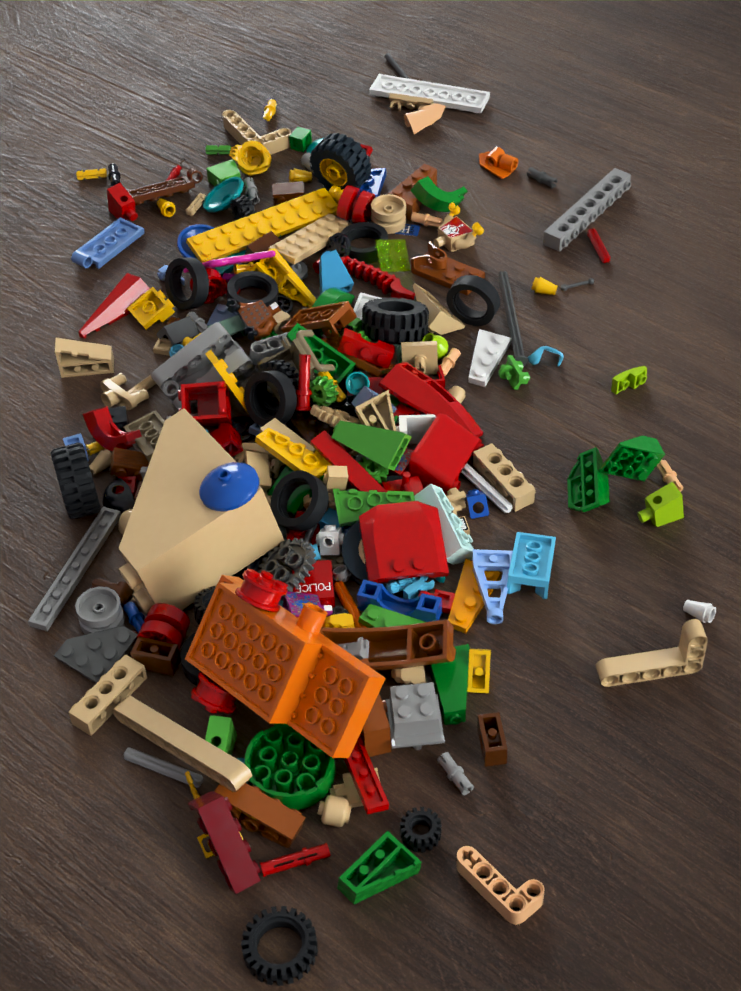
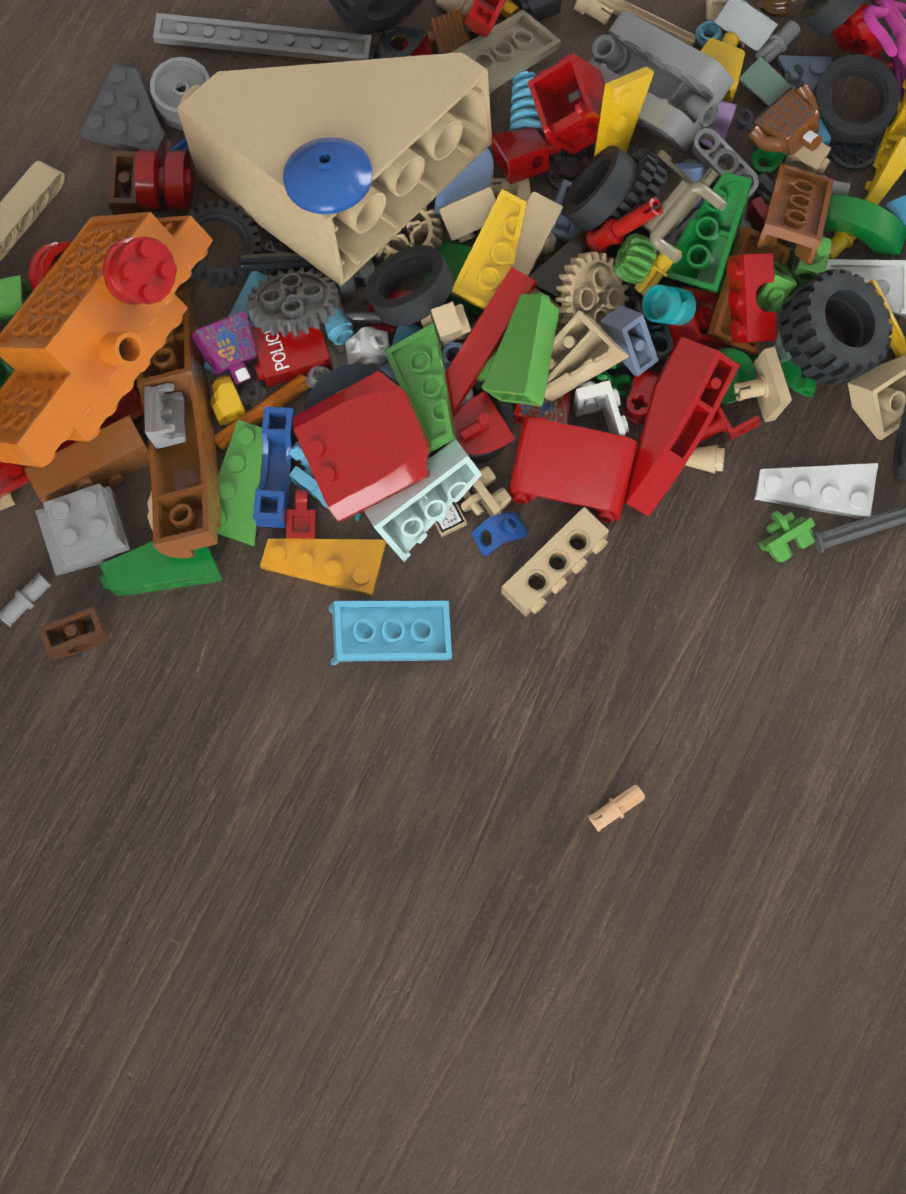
camera: 75 degrees right, 30 degrees up
(106, 694) = (27, 126): tan brick -> none
(442, 344) = (812, 403): lime piece -> none
(449, 361) = (788, 432): light nougat axle -> none
(479, 670) = (185, 597): yellow slope -> none
(492, 561) = (376, 577): light blue plate -> none
(502, 503) = (531, 542): white axle -> none
(535, 357) = (835, 562): medium azure piece -> none
(586, 484) = (560, 690): green wedge -> none
(631, 378) = (823, 726): lime slope -> none
(634, 458) = (619, 753): green slope -> none
(657, 664) = (259, 866): tan beam -> none
(663, 506) = (546, 811): lime torso -> none
(702, 611) = (358, 883): white cone -> none

